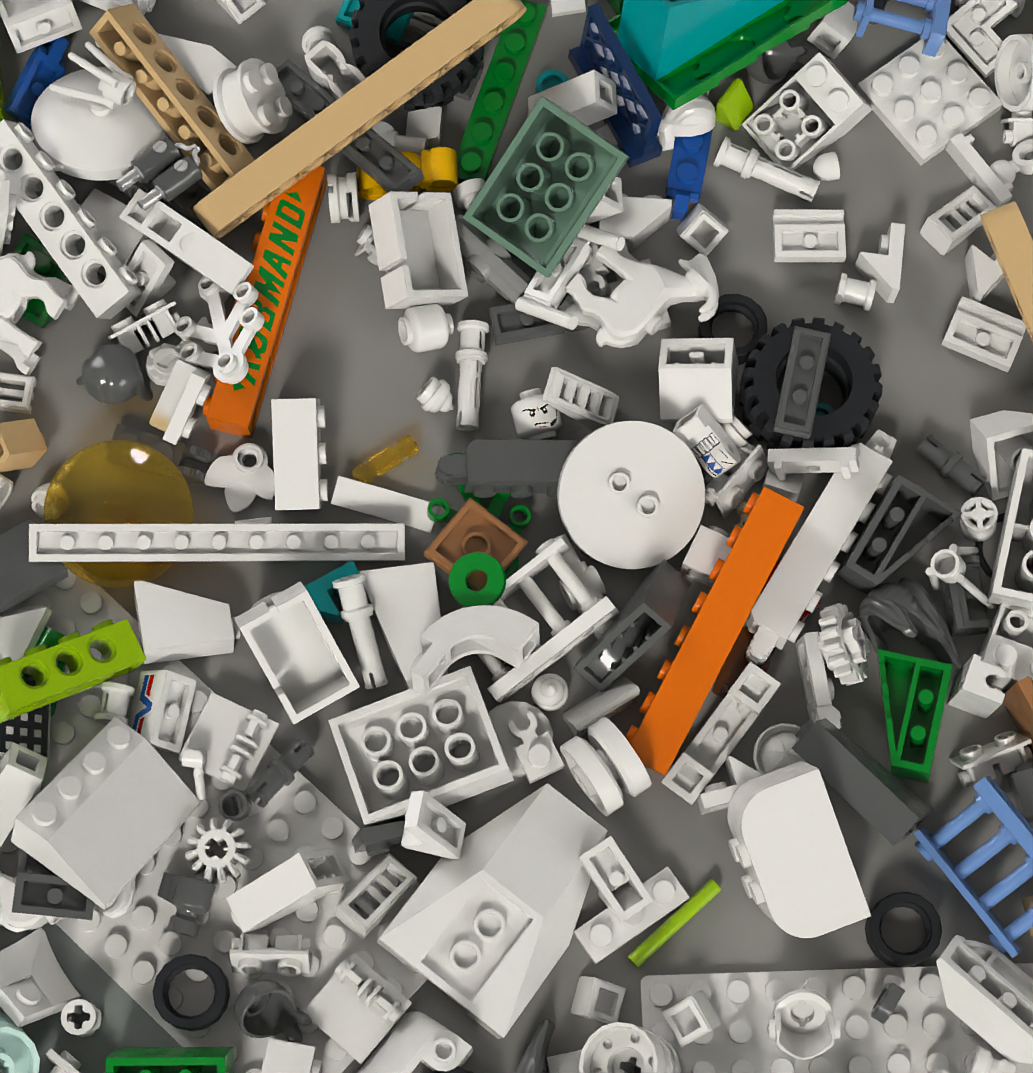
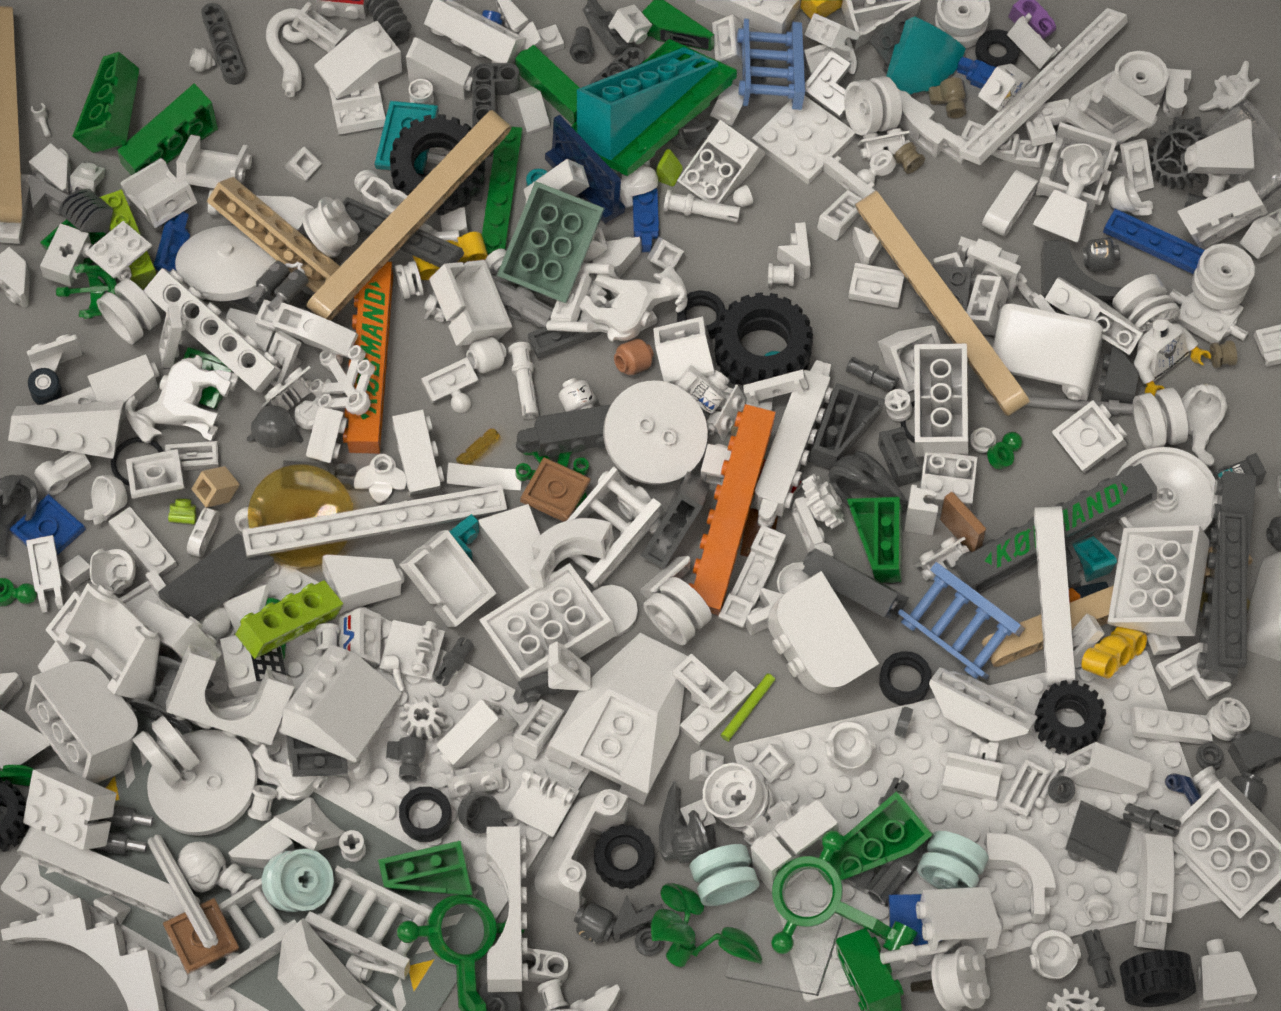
camera: 10 degrees left, 10 degrees down
(115, 86) = (233, 232): white plant -> none
(229, 808) = (421, 689): dark grey hinge -> none
(358, 612) = (483, 546): white pin -> none
(367, 356) = (451, 381): none -> white plate
(435, 396) = (504, 399): white plate -> none
(477, 562) = (559, 495): green piece -> none
(536, 753) = (626, 615): white plate -> none
(549, 692) = (628, 575): white plate -> none
(601, 403) = (620, 379): white slope -> none
(626, 372) = (633, 357): none -> nougat head
(802, 382) = (756, 335): dark grey tile -> none
(808, 235) = (740, 244): white plate -> none
(951, 569) = (884, 435): white plant -> none

